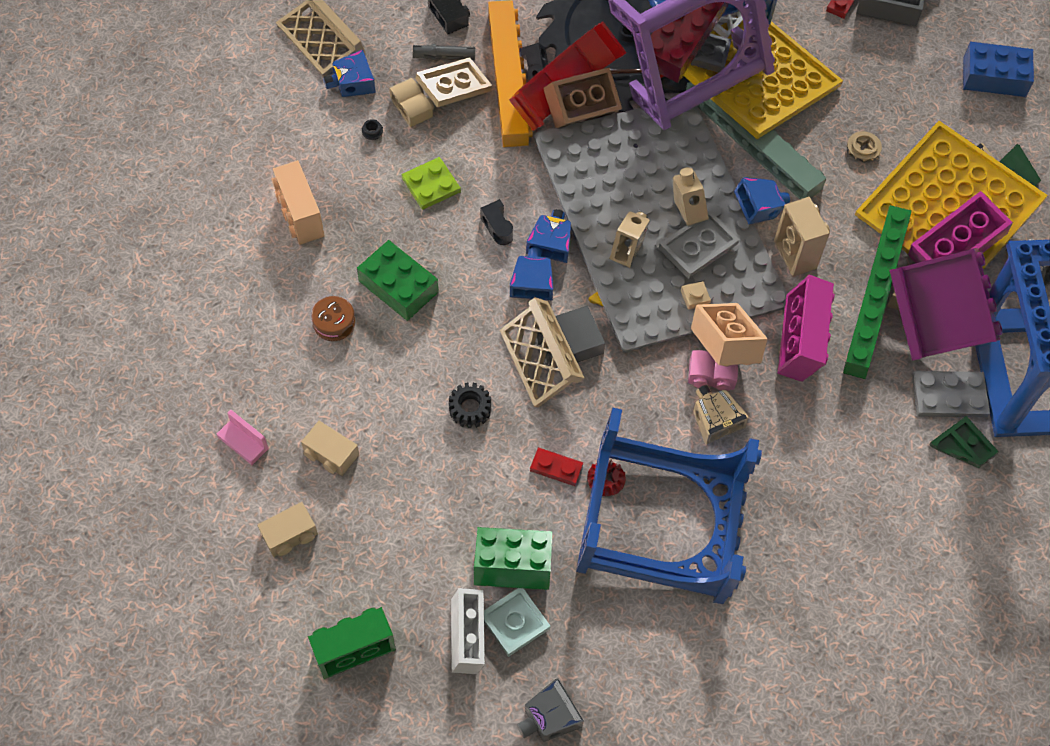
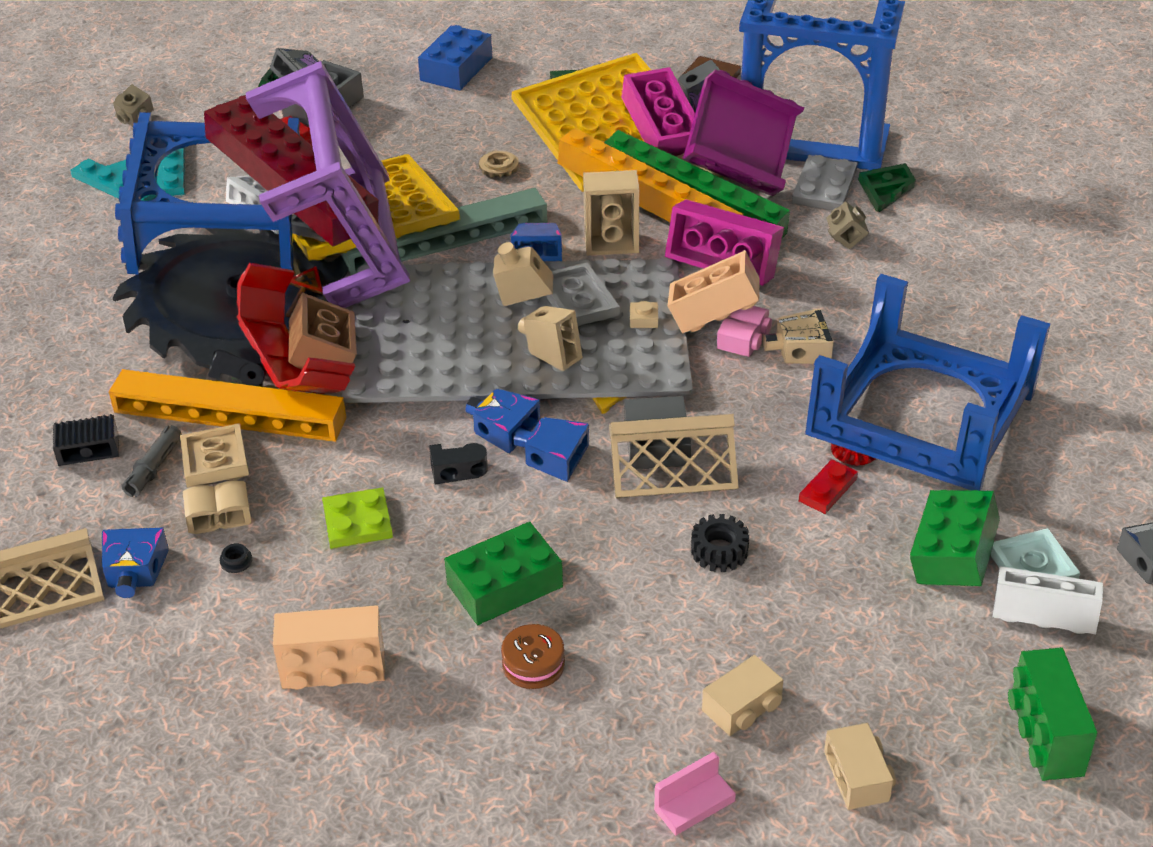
camera: 70 degrees left, 20 degrees down
(860, 256) = (656, 189): none -> light orange brick
(881, 419) = (847, 225): none -> dark tan brick

